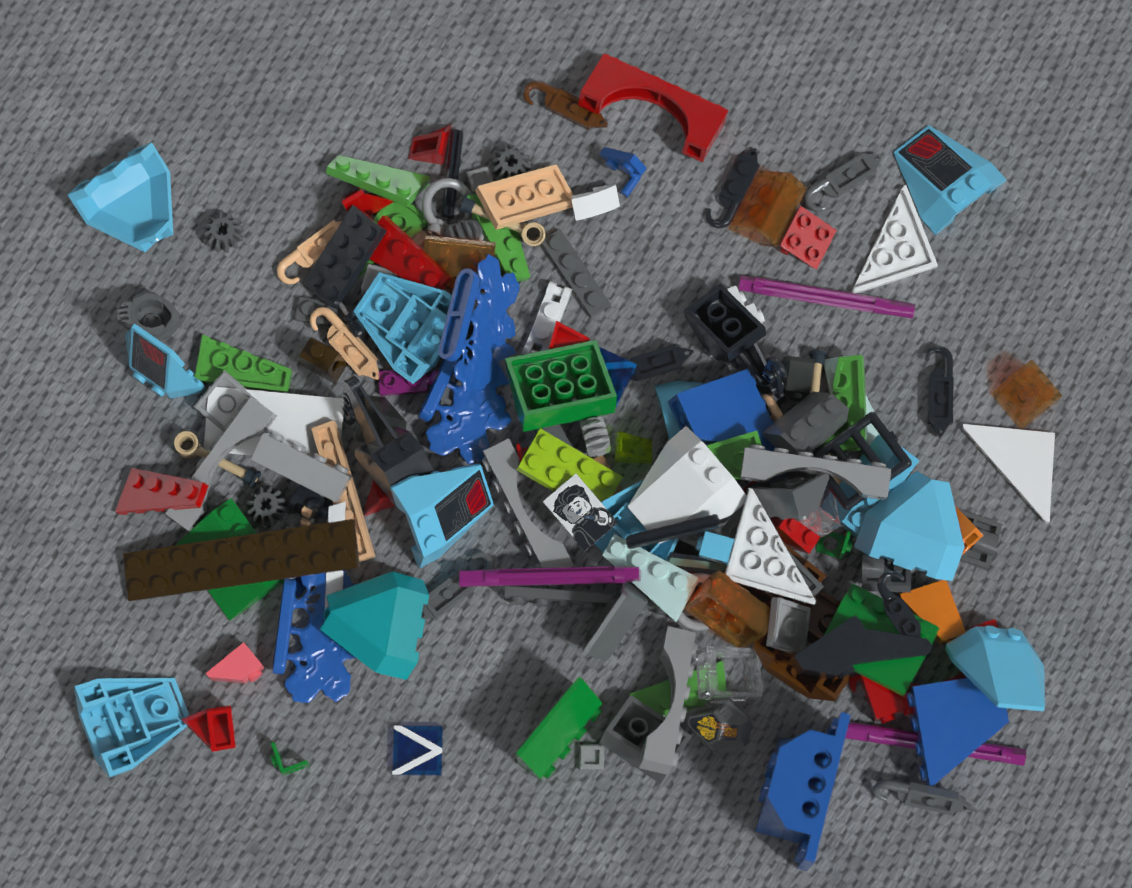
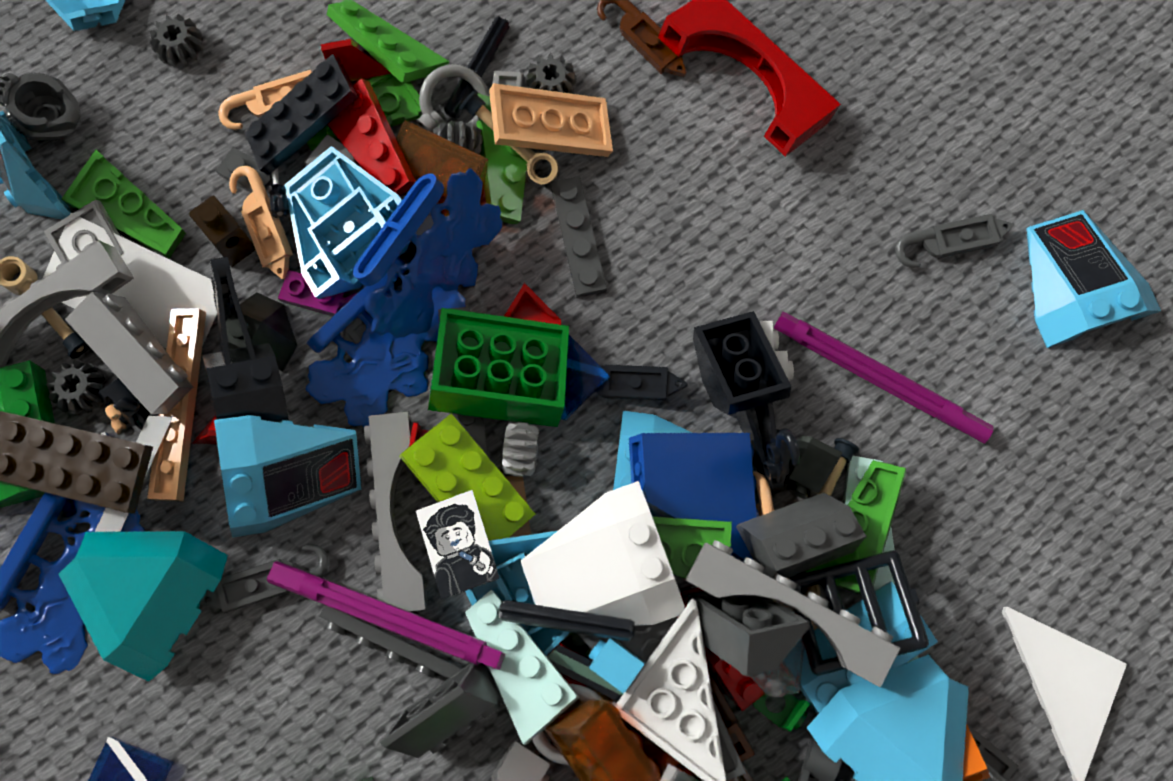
camera: 15 degrees right, 0 degrees up
(430, 147) = (465, 27): red slope -> none
(546, 318) = (526, 270): white plate -> none
(596, 202) = (635, 158): white slope -> none
(625, 162) = (690, 122): blue plate -> none
(632, 448) = (562, 481): clear neon green slope -> none
(735, 188) = (814, 203): black plate -> none
(768, 207) = (848, 239): clear orange slope -> none
(807, 238) = (883, 294): hinge -> none
(899, 249) = (996, 349): white tile -> none
(941, 392) = (990, 554): black plate -> none
(1027, 394) = (1106, 599): clear orange slope -> none

